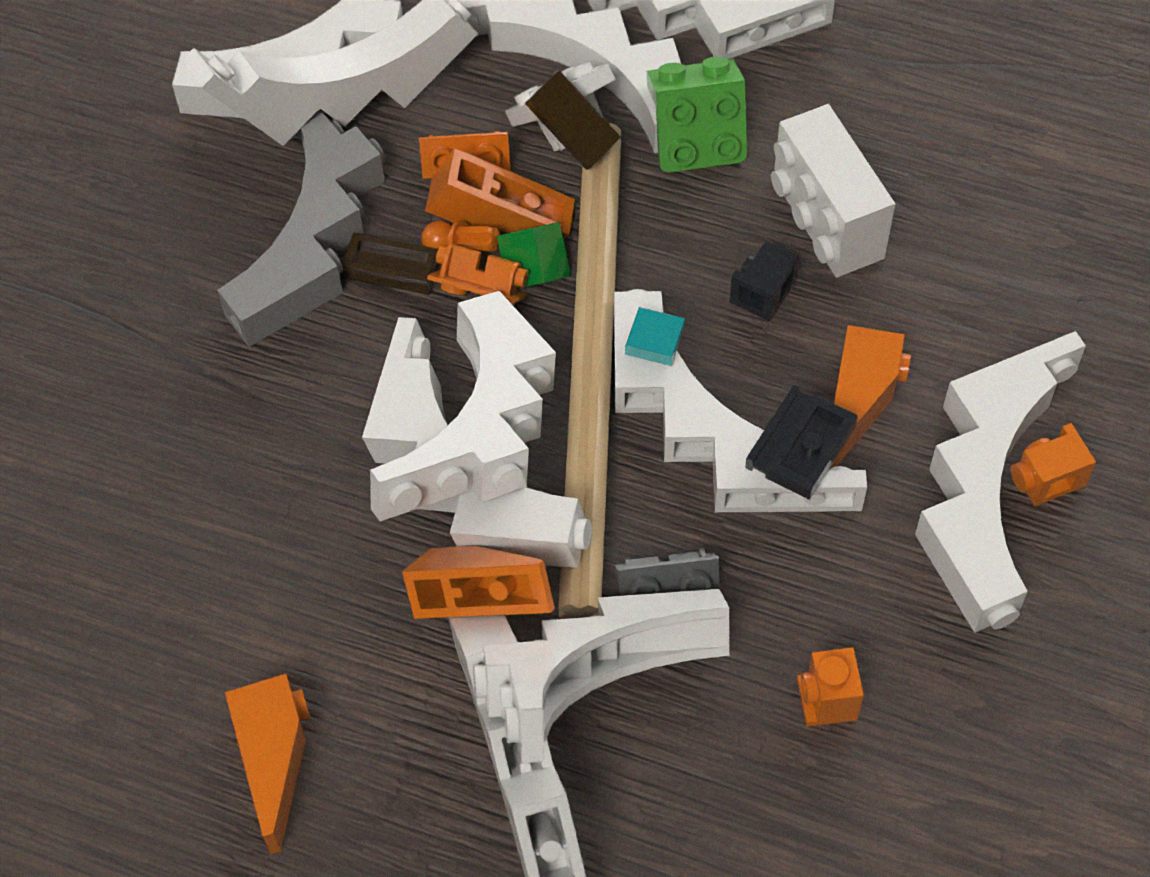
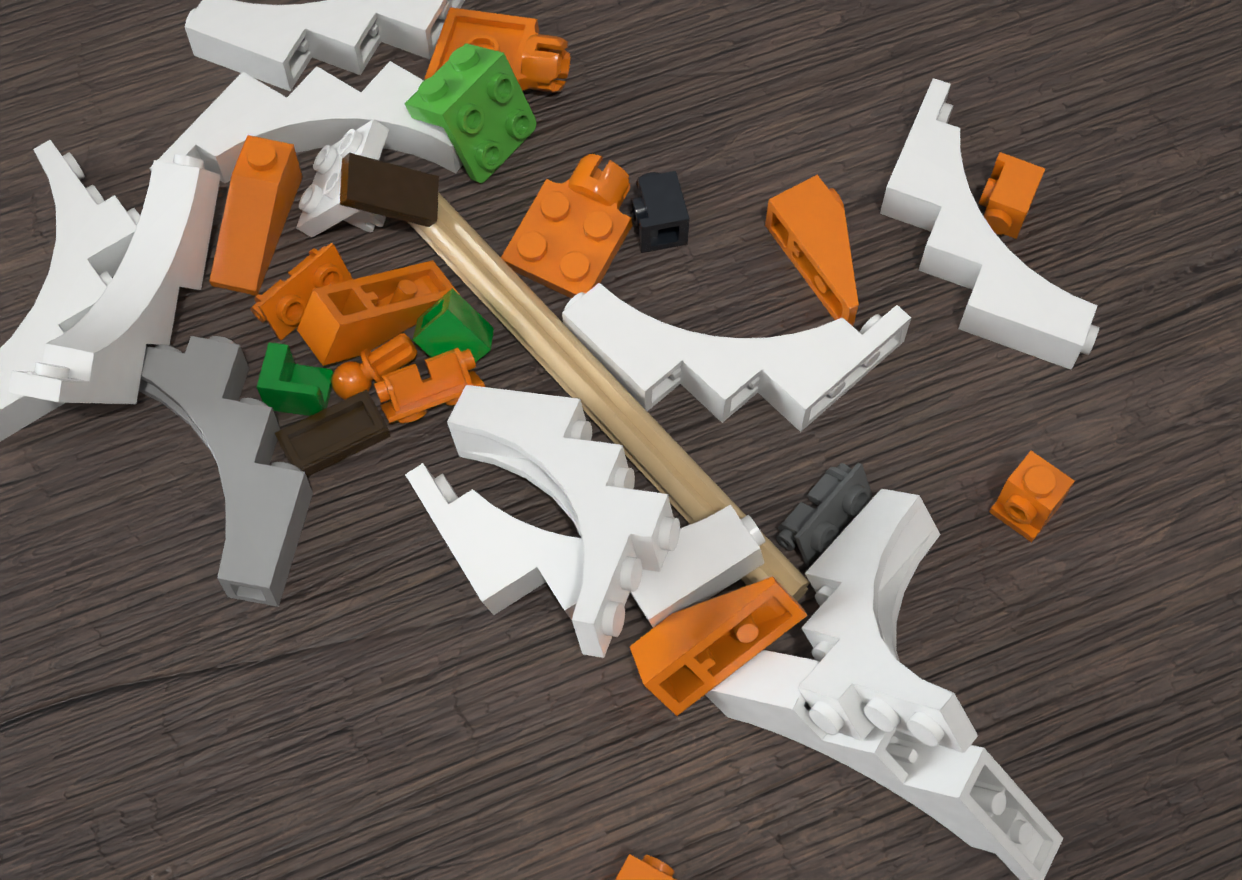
camera: 45 degrees left, 5 degrees up
(393, 207) = (292, 386): none -> green panel
(485, 79) = (255, 213): none -> orange slope
(655, 336) = (638, 323): teal tile -> none
(691, 246) = (573, 229): none -> orange plate
(772, 84) = (532, 56): none -> orange plate
(801, 442) = (838, 319): black plate -> none
(832, 191) = (647, 97): white brick -> none

